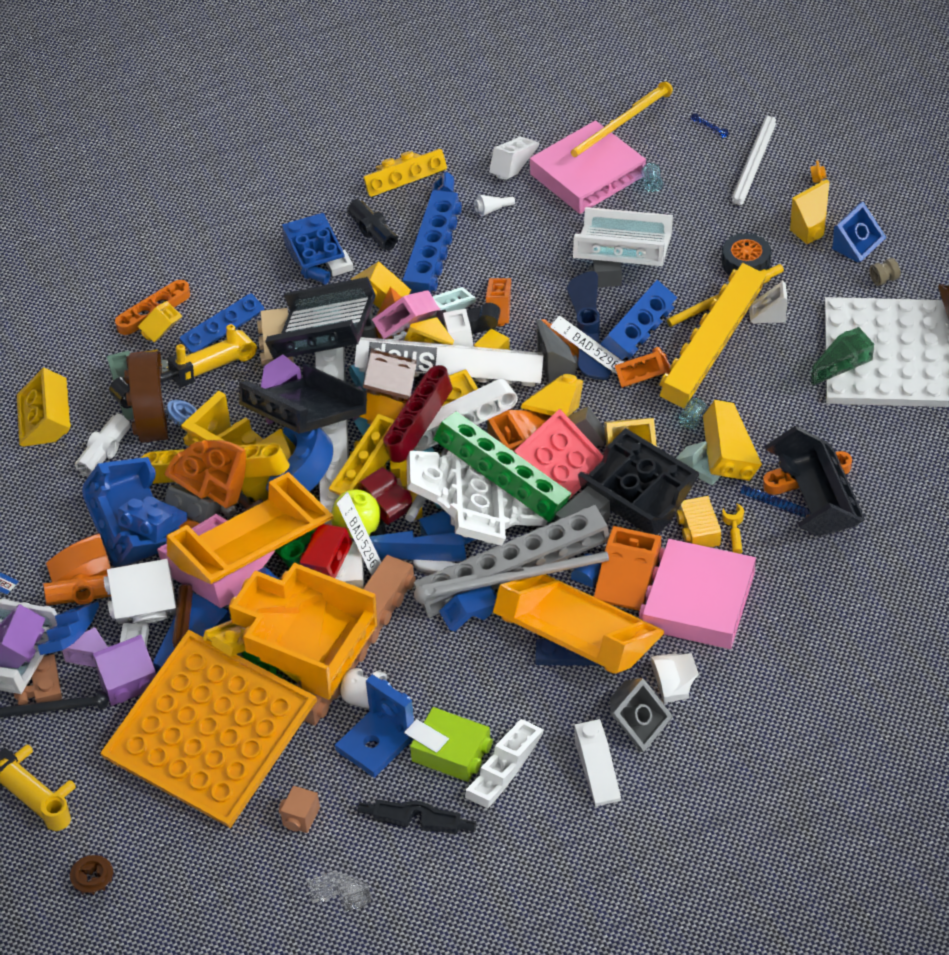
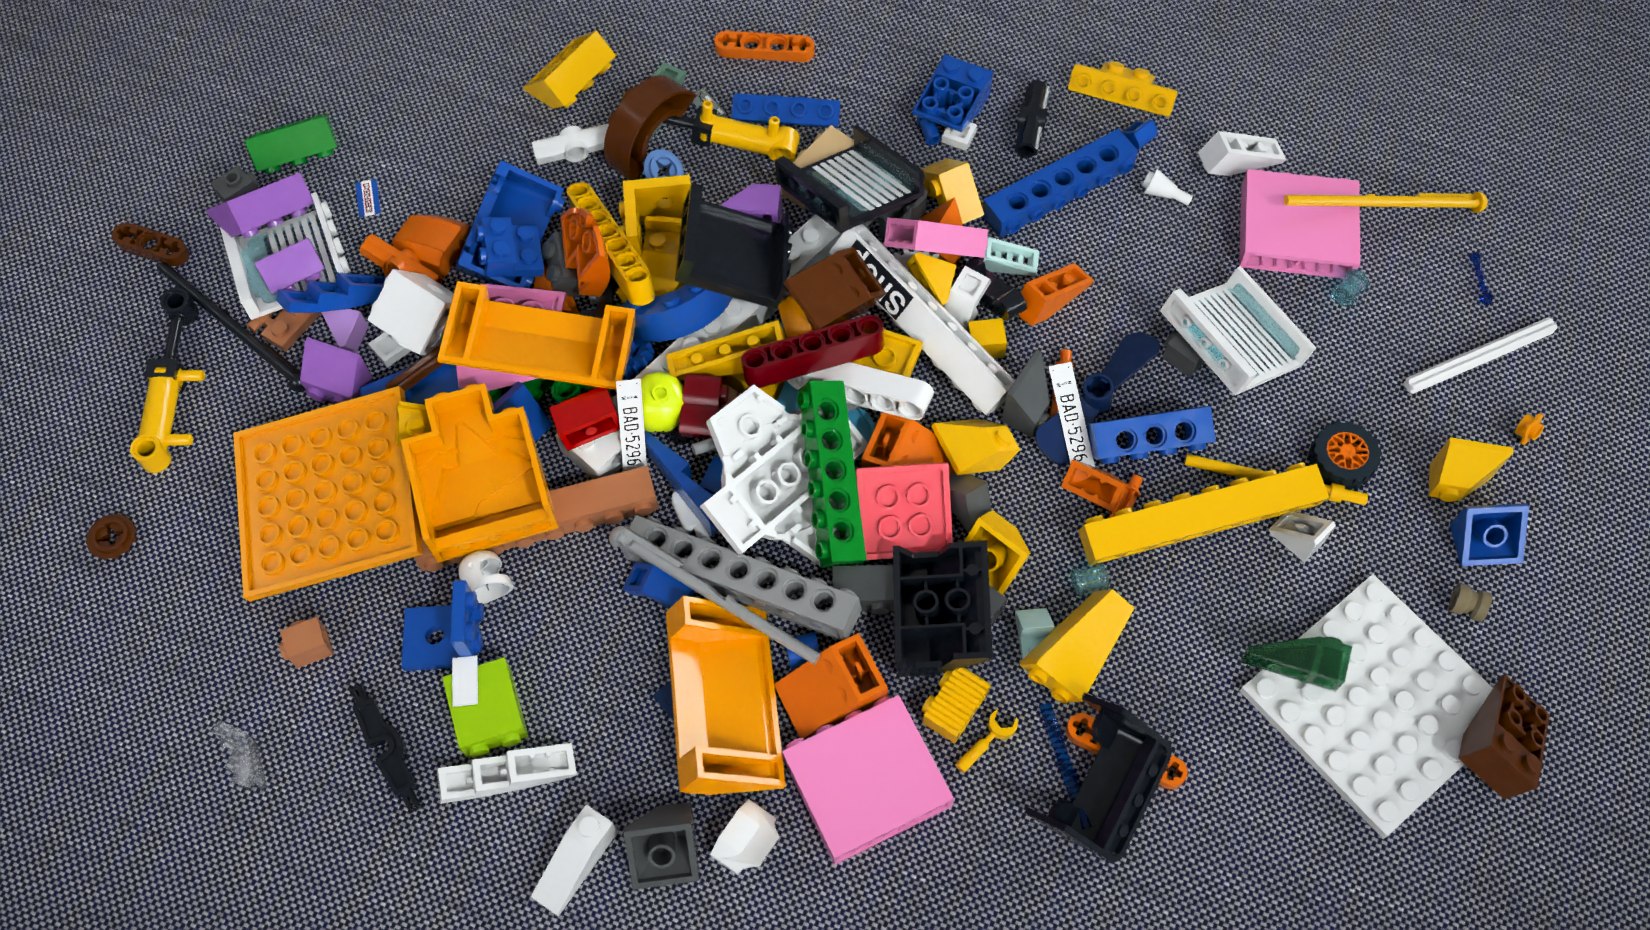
camera: 45 degrees right, 15 degrees up
(159, 321) = (747, 64): yellow slope -> none

